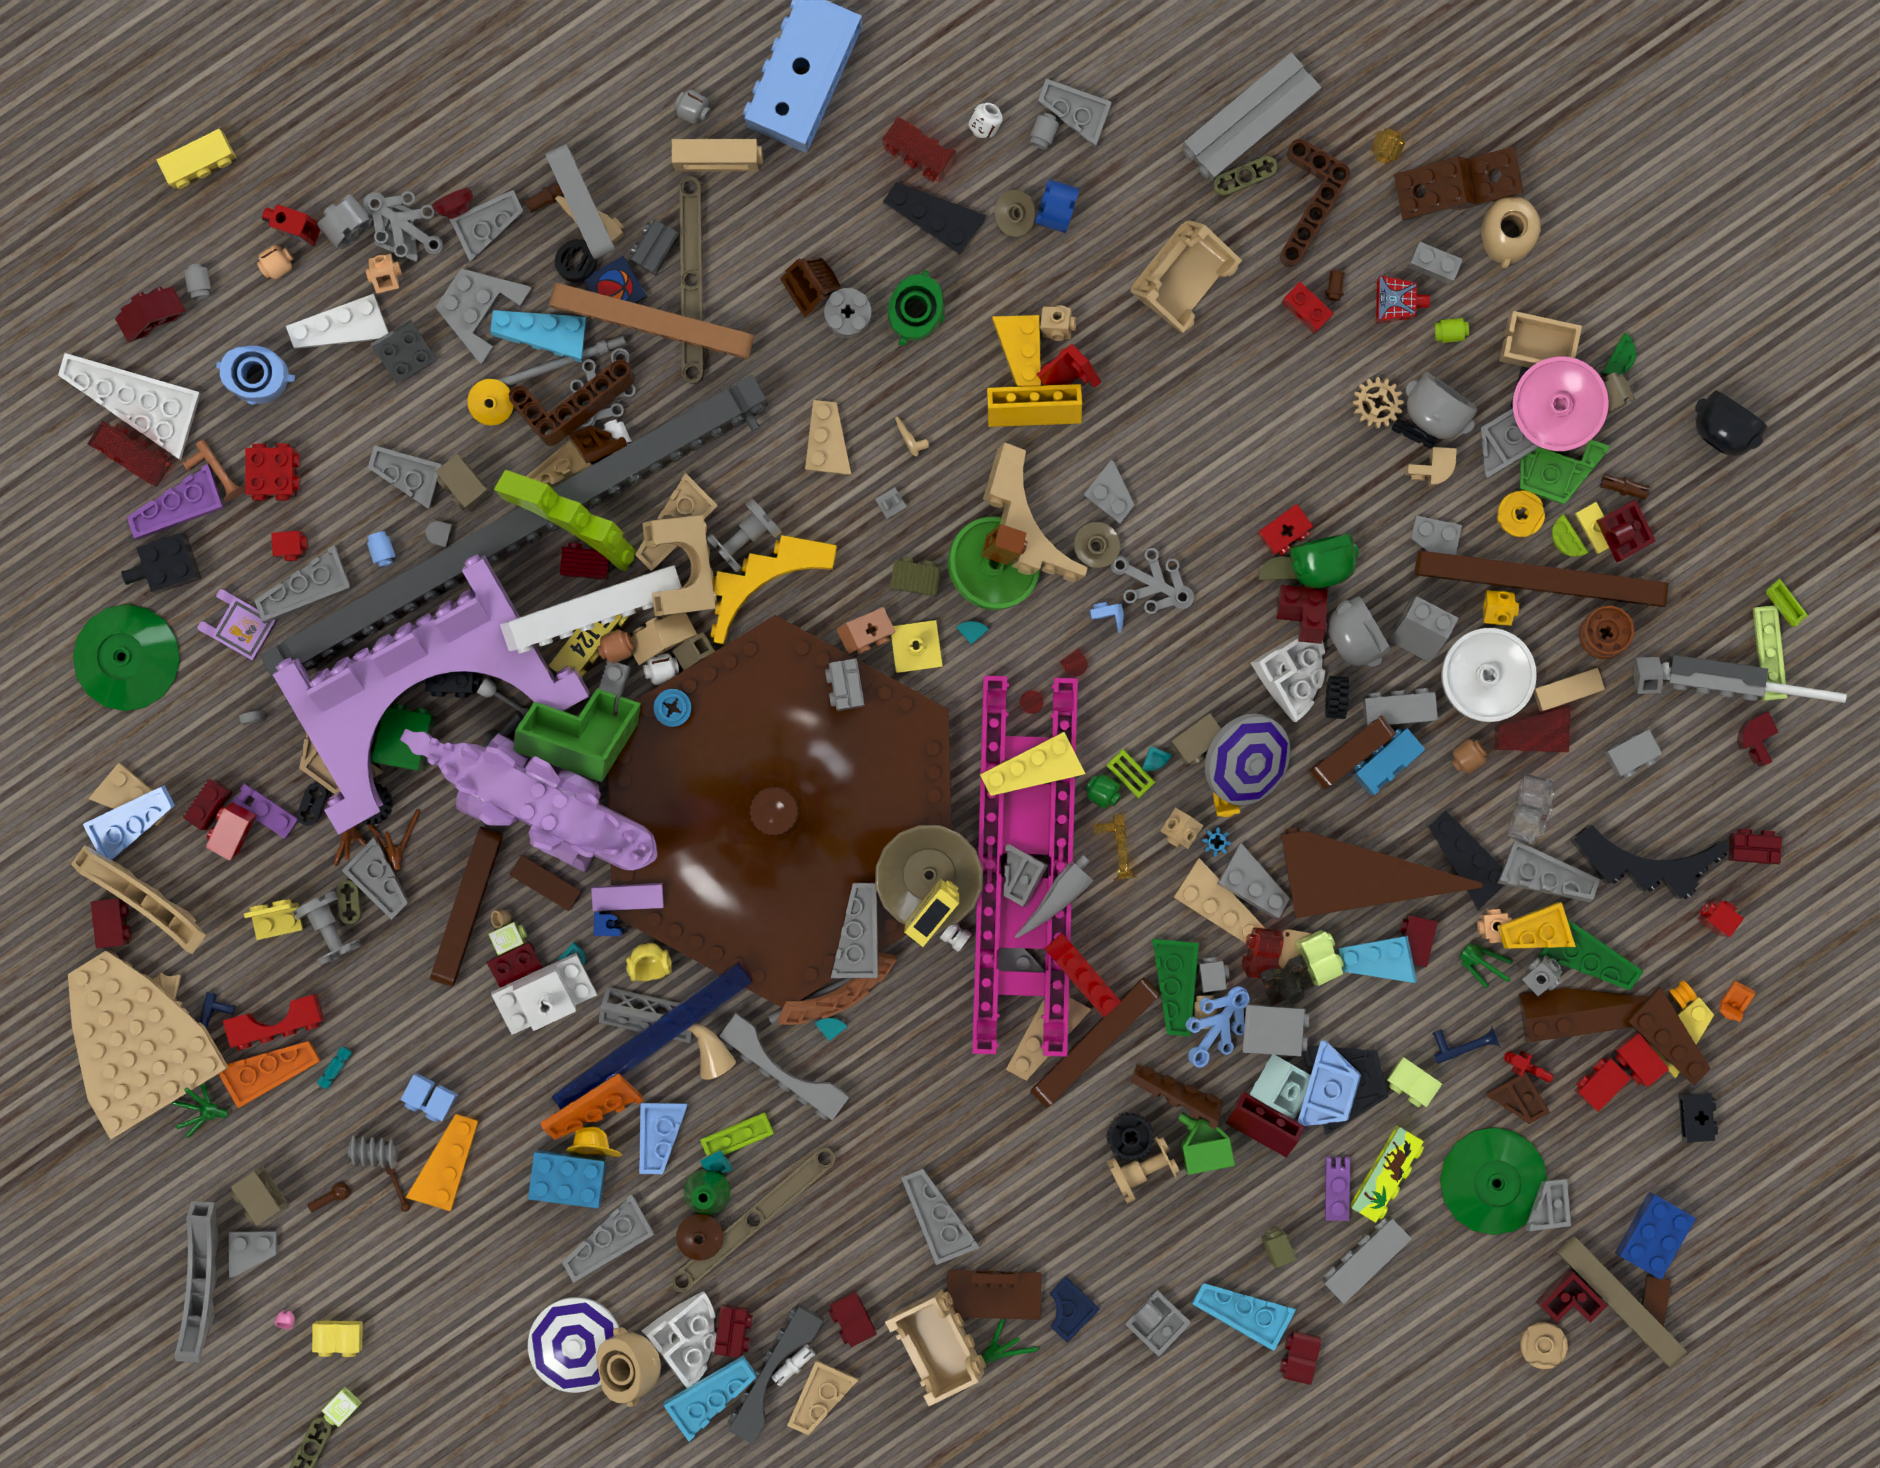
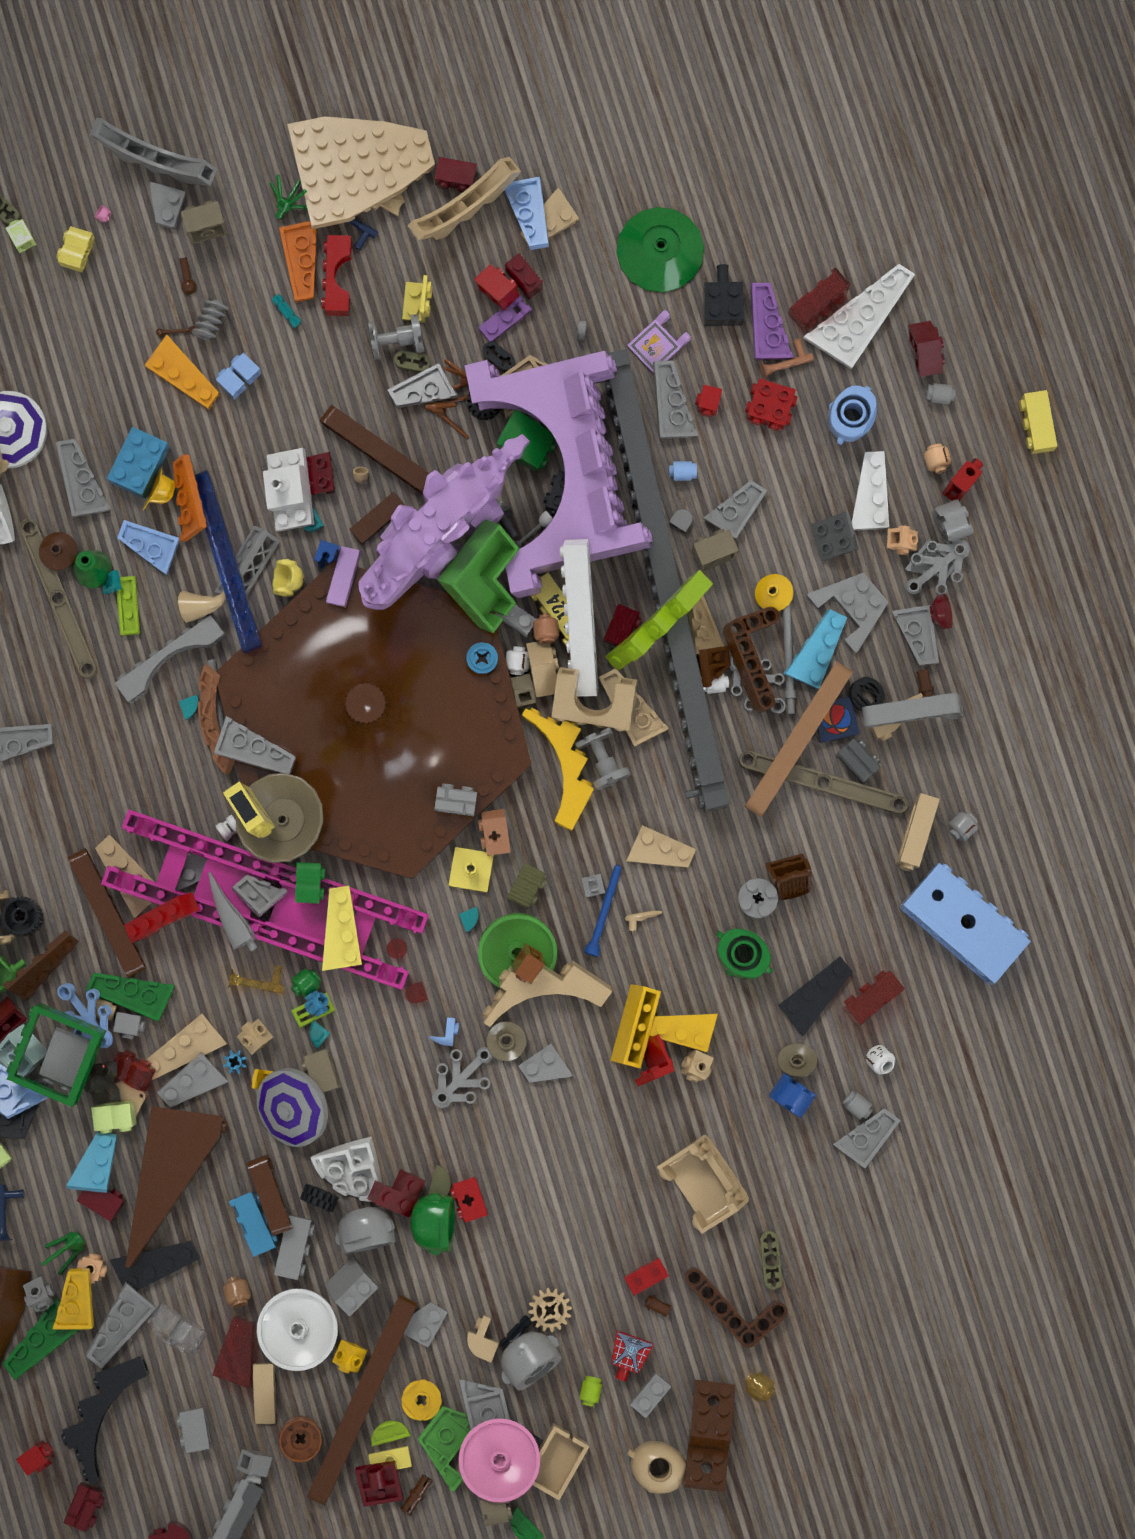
camera: 105 degrees right, 5 degrees down
(508, 937) = (343, 475): yellowish green brick -> none
(960, 481) = (593, 946): none -> blue piece
(992, 820) = (308, 883): none -> green brick
(1123, 770) = (316, 1003): none -> dark azure gear
(1232, 1042) = (90, 1055): none -> green window
(1251, 117) = (817, 1280): light grey brick -> none

